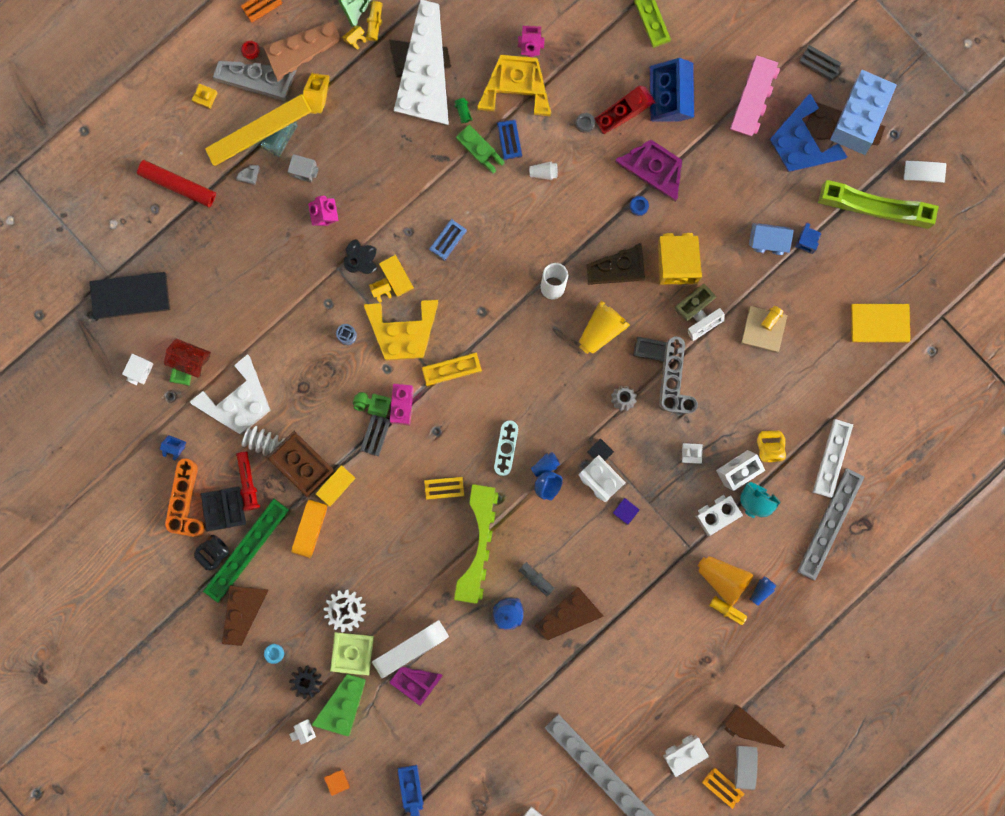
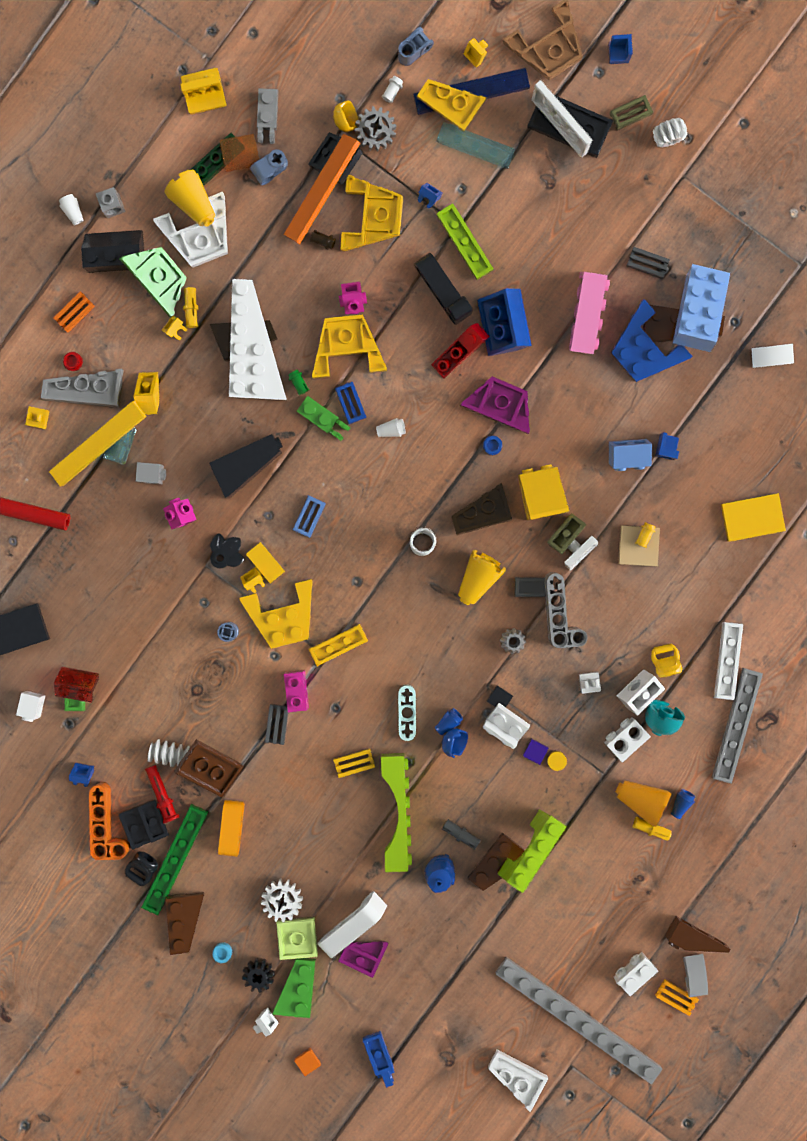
camera: 10 degrees left, 5 degrees up
(242, 406) = (142, 719): white wing -> none
(248, 175) = (98, 489): light grey tile -> none
(300, 48) = (122, 350): nougat wing -> none
(335, 486) = (248, 781): yellow tile -> none
(377, 405) = (273, 695): bright green plate -> none
(396, 176) = (242, 465): none -> black slope
(585, 122) = (423, 370): flat silver tile -> none
(620, 588) = (546, 834): none -> lime arch
(627, 66) = (442, 288): none -> black beam
(645, 524) = (556, 760): none -> yellow tile
(851, 199) = (751, 401): lime arch -> none

